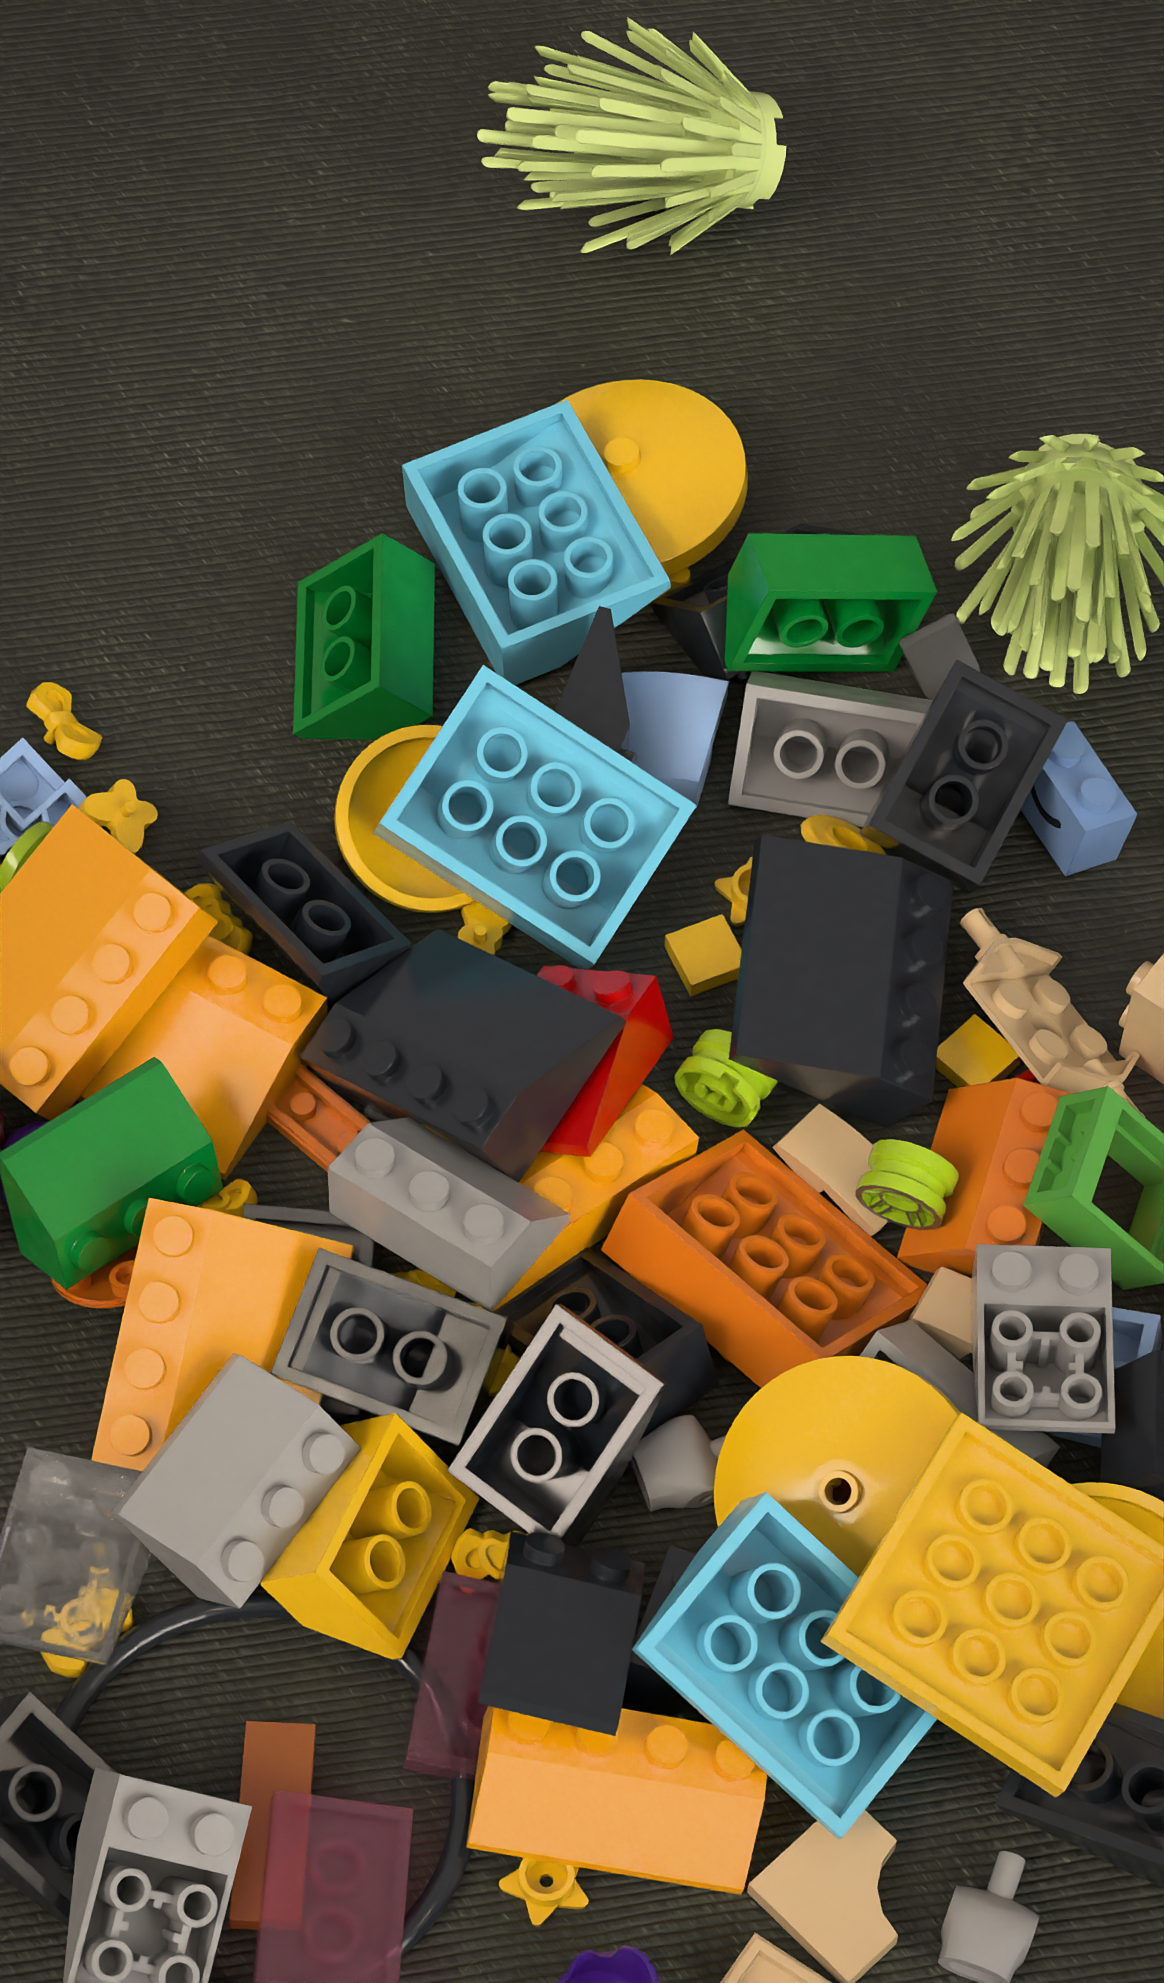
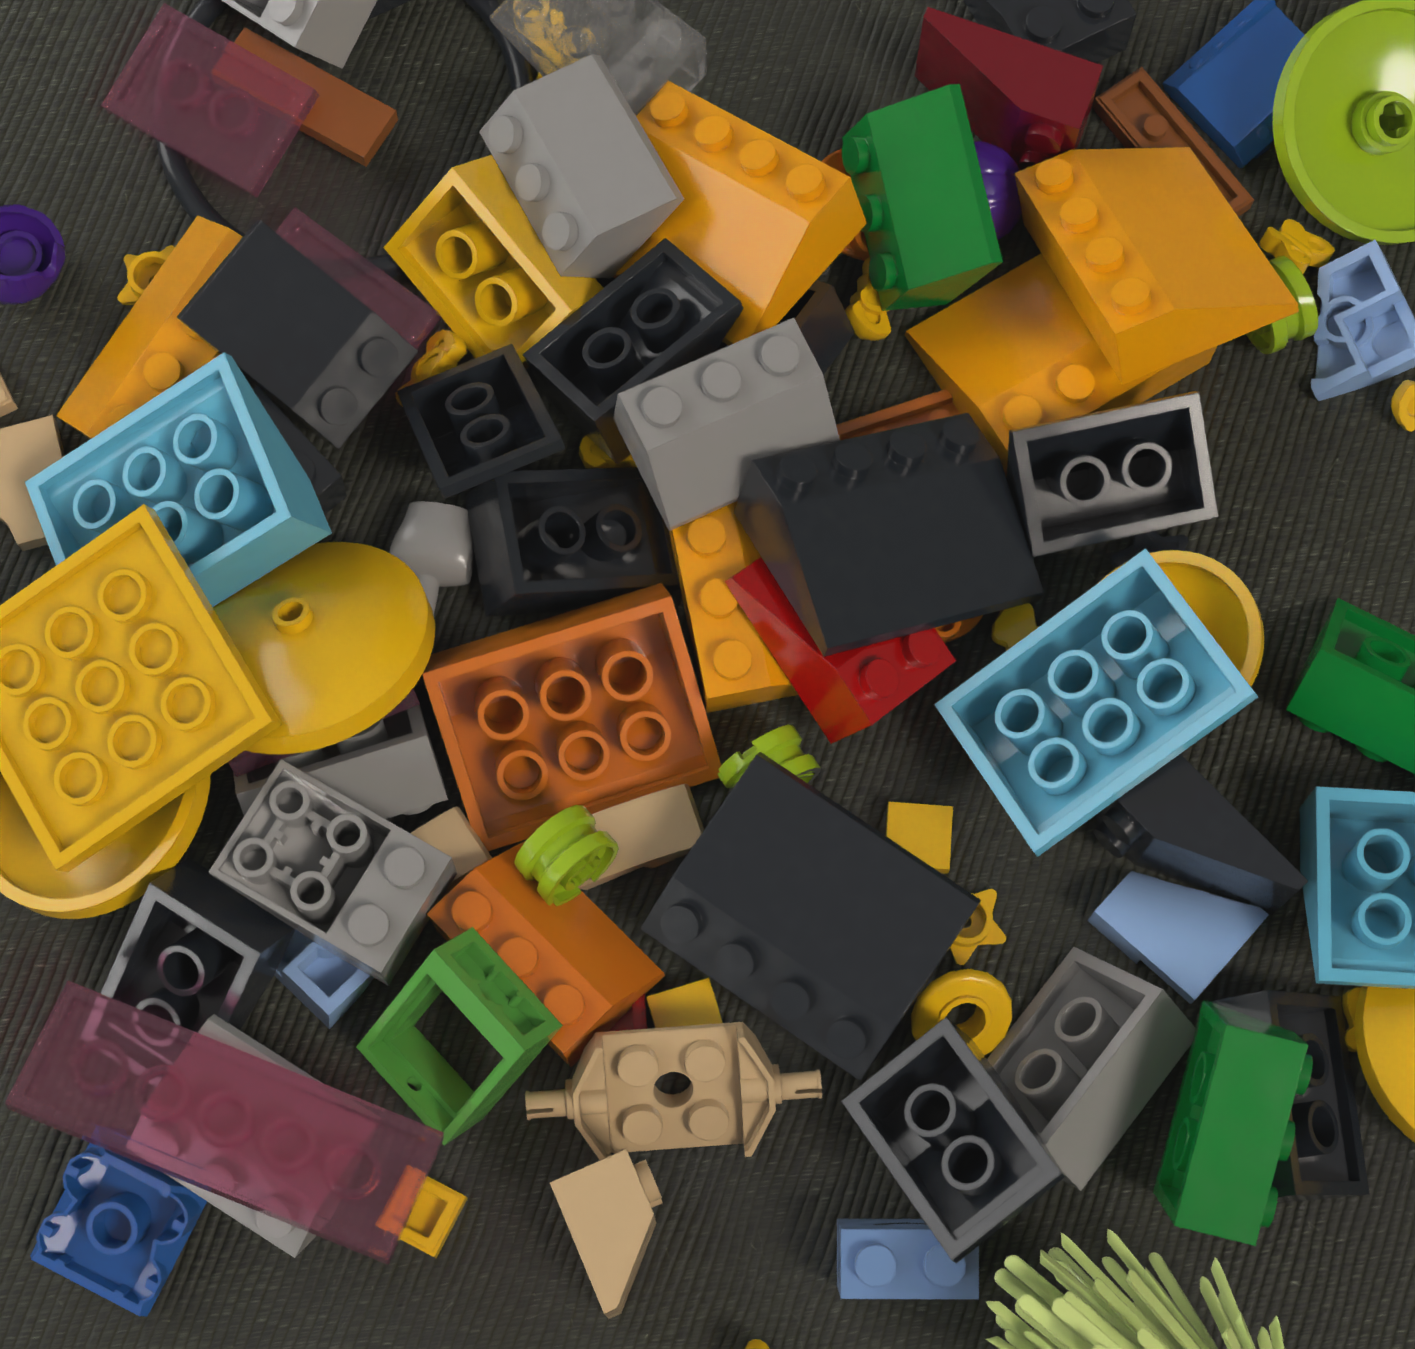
camera: 120 degrees right, 15 degrees up
(121, 813) = (1312, 405): yellow piece -> none
(934, 651) = (1137, 1222): dark grey slope -> none

